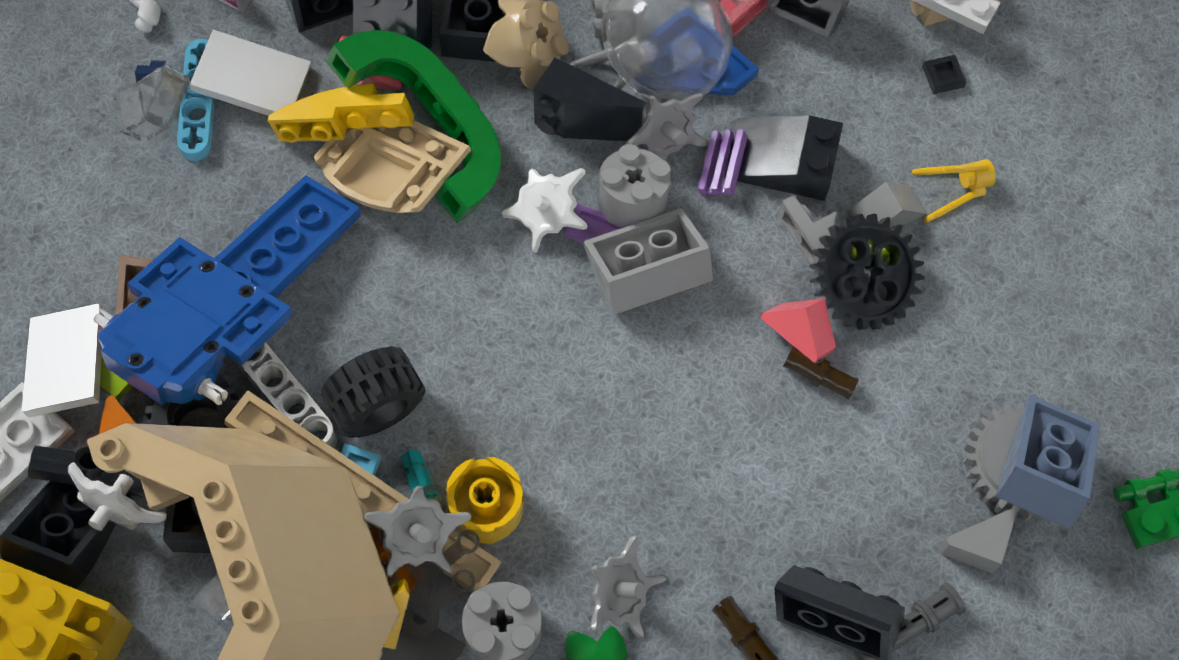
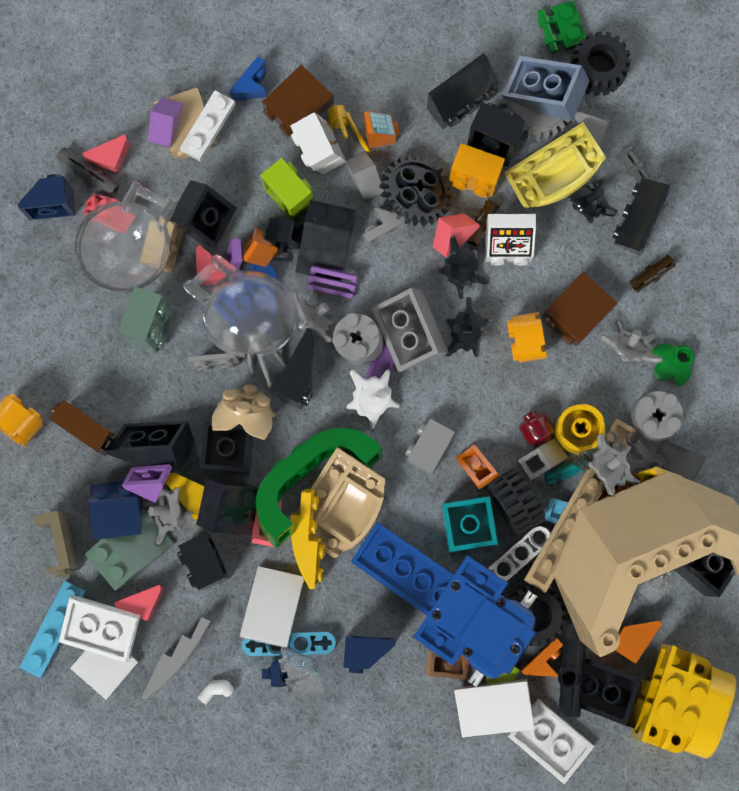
camera: 85 degrees left, 15 degrees up
(111, 502) = (600, 661): white piece -> none
(142, 571) = (636, 638): none -> orange slope
(168, 170) = (364, 651): none -> dark blue slope
(341, 326) = (469, 524): none -> teal brick
(432, 347) = (477, 467): none -> orange slope
(436, 438) = (541, 460): none -> light grey slope
(468, 284) = (430, 446): none -> light grey brick
(490, 436) = (536, 428): none -> dark red head
(634, 423) = (528, 337): none -> light orange brick
(647, 340) = (467, 330): none -> black piece
(682, 511) = (579, 309): none -> reddish brown brick
(748, 334) = (461, 267): none -> black piece
(755, 28) = (234, 253): none -> medium lavender tile
(766, 56) = (258, 250): none -> orange slope
(789, 96) = (284, 235): none -> black brick
(794, 402) = (510, 238): none -> white piece
(859, 94) = (287, 188): none -> lime brick
(867, 531) = (589, 201): none -> black piece
(902, 354) = (476, 171): none -> light orange brick
(912, 471) = (556, 168): none -> light yellow slope
(937, 125) = (314, 138): none -> white piece
(944, 74) = (257, 133): black tile -> none
(961, 222) = (380, 129): none -> slope
(965, 377) = (496, 131): none -> black brick
(994, 120) = (296, 99): none -> reddish brown brick
(1016, 55) = (246, 86): none -> blue slope
(1032, 340) = (462, 92): none -> black slope
(1127, 544) = (612, 50): none -> black tyre

